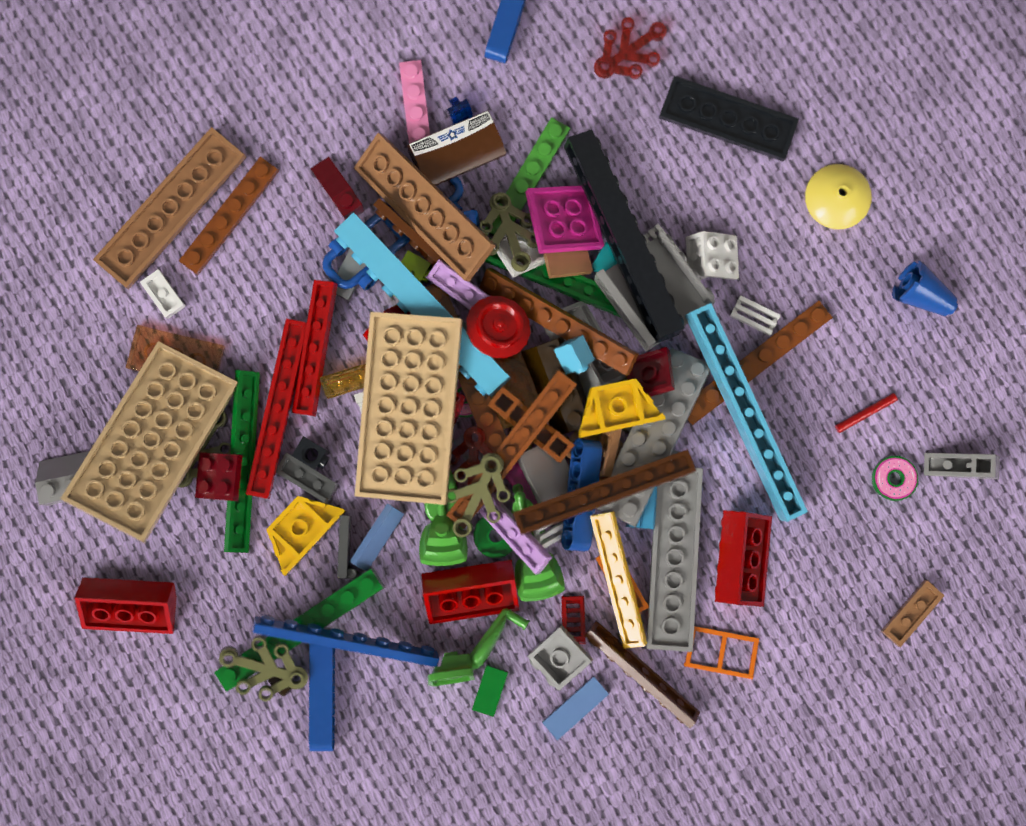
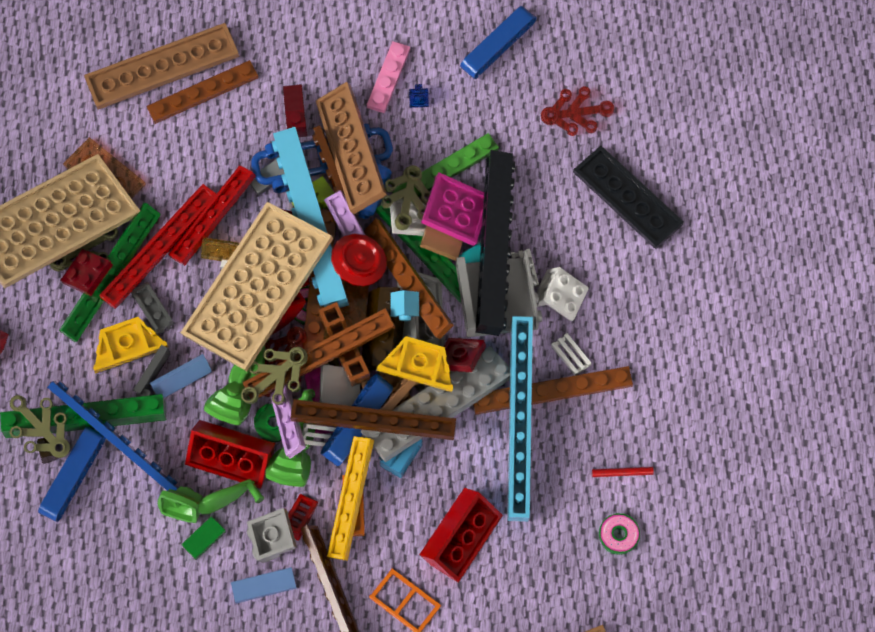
camera: 30 degrees right, 15 degrees down
(162, 294) = (120, 124): white plate -> none
(302, 450) = (165, 283): black brick -> none
(457, 148) = (402, 122): reddish brown slope -> none
(674, 564) = (404, 509): light grey plate -> none
(829, 206) = (685, 307): light yellow dish -> none
(924, 290) = (718, 398): blue cone -> none
(962, 465) = (680, 549): light grey slope -> none

